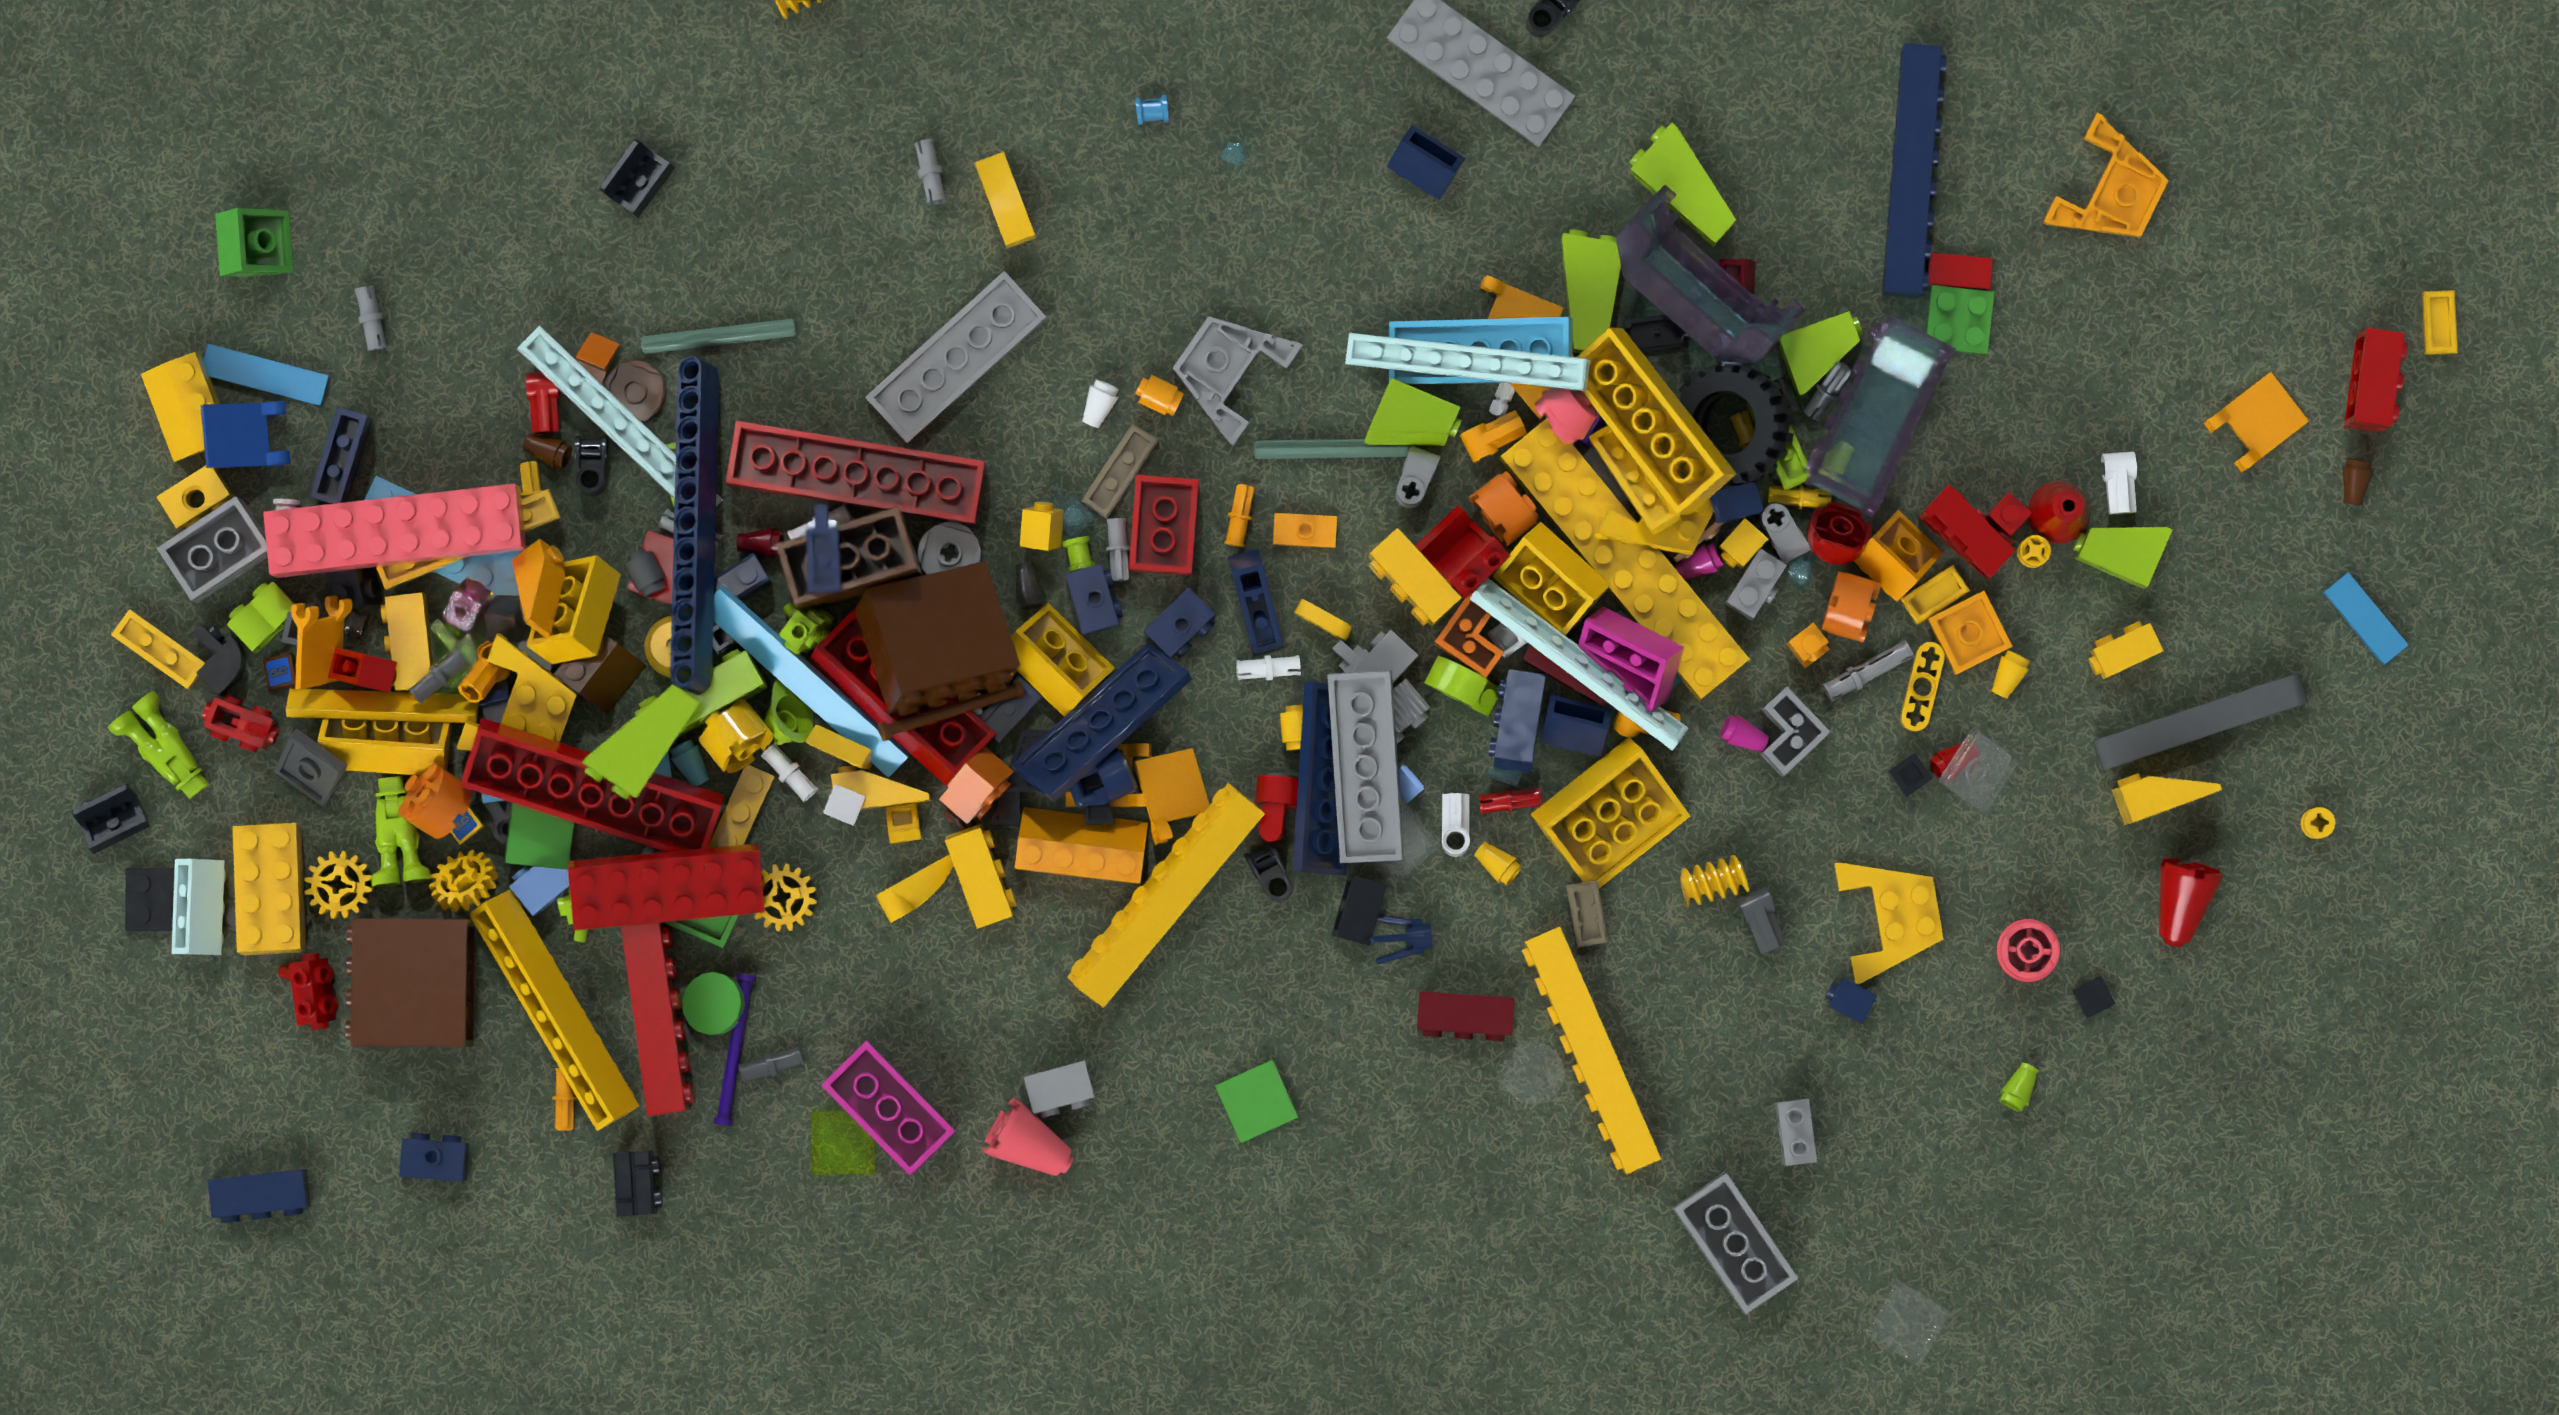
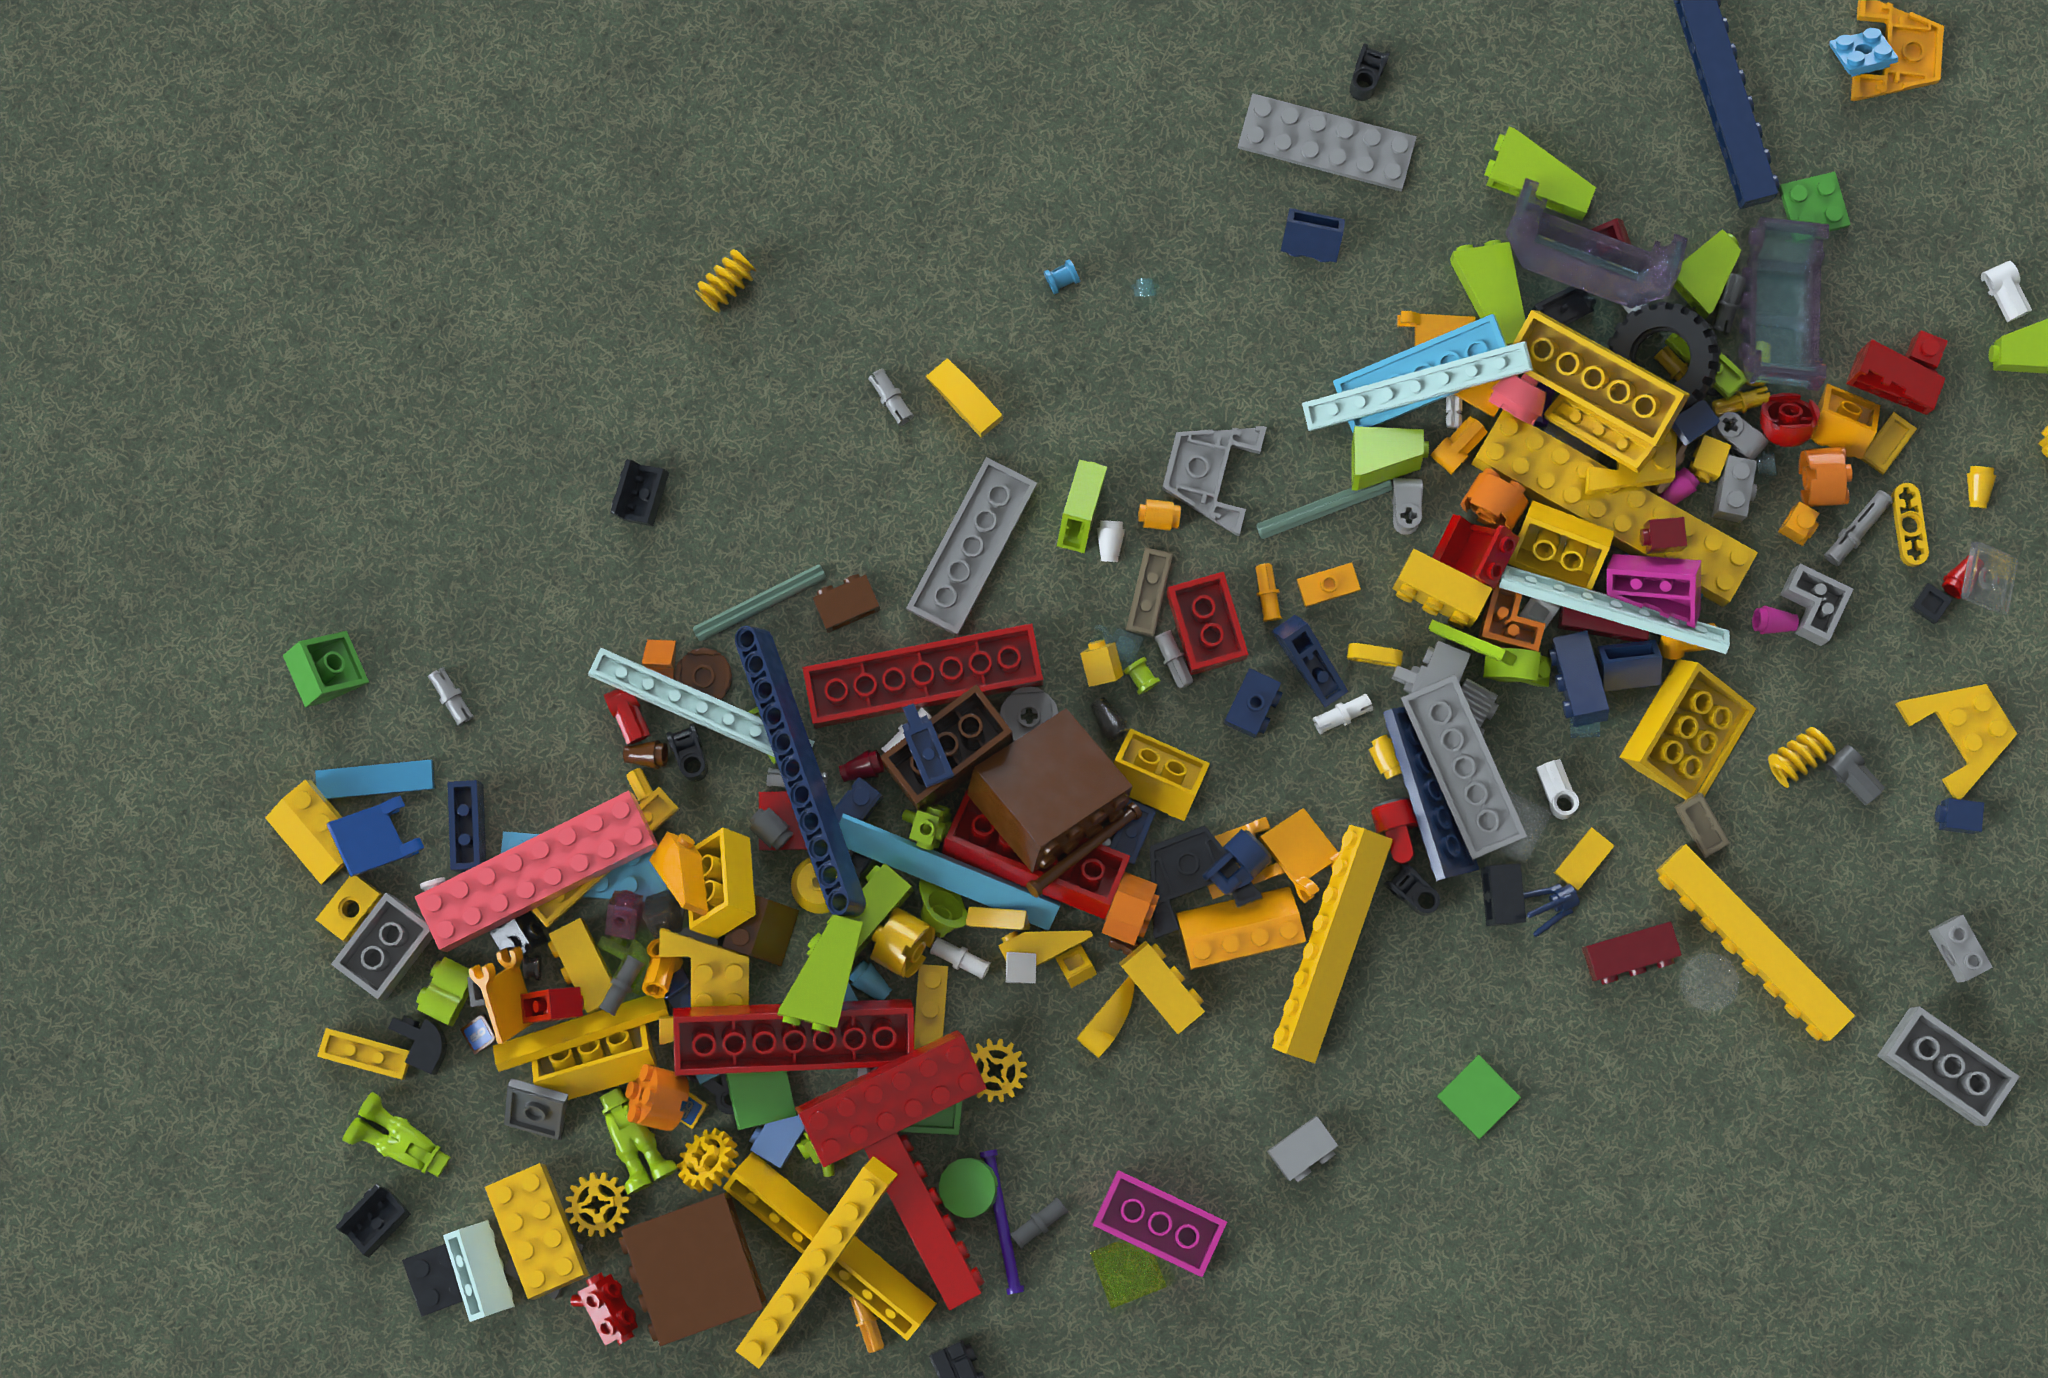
camera: 15 degrees left, 5 degrees down
(252, 728) = (468, 1093): red brick -> none
(533, 1020) = (816, 1262): none -> yellow brick
(806, 369) = (846, 602): none -> reddish brown brick
(1027, 1141) = (1291, 1207): coral cone -> none
(1082, 356) = (1081, 506): none -> lime slope
(1093, 600) = (1169, 709): dark blue brick -> none
(1101, 722) = (1219, 812): dark blue plate -> none
(1408, 784) = (1506, 768): light blue slope -> none
(1423, 644) = (1472, 642): none -> lime tile
(1455, 904) = (1584, 859): none -> yellow tile
(1498, 863) = (1607, 809): yellow cone -> none
(1510, 800) = (1596, 751): red axle -> none
(1656, 607) = (1664, 535): none -> dark red brick
(1960, 271) = (1800, 164): red tile -> none
(1969, 632) = (1932, 463): light orange plate -> none
(2038, 548) = (1963, 371): yellow wheel -> none
(2050, 518) = (1968, 333): red cone -> none
(2083, 168) = (1863, 52): none -> dark azure piece

